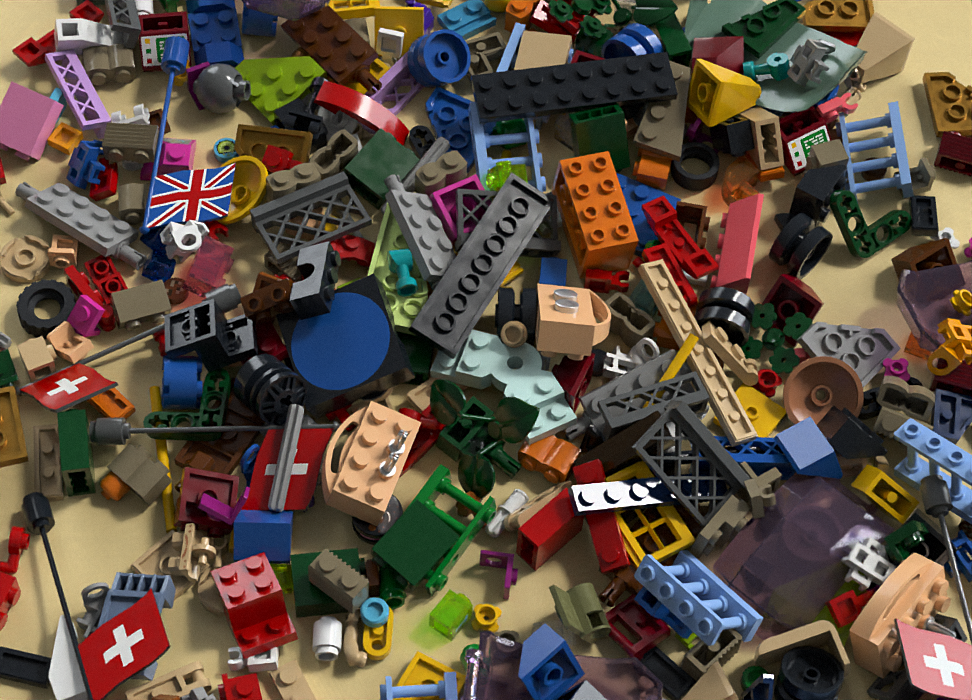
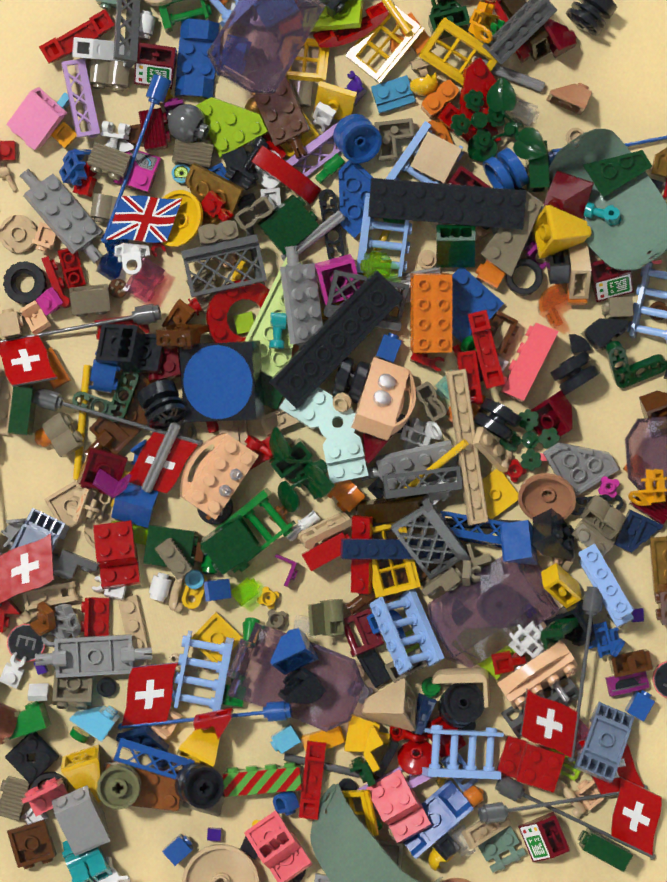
camera: 20 degrees right, 30 degrees up
(182, 114) = (155, 135): none -> dark red brick
(187, 635) = (68, 563): none -> dark grey plate
(226, 120) = (193, 152): none -> dark tan brick
(316, 292) = (207, 347): black arch -> none
(411, 614) = (217, 589): none -> blue slope
(414, 105) = (330, 168): none -> green bar
(444, 172) = (334, 245): dark tan brick -> none
(806, 57) = (634, 232): light grey piece -> none

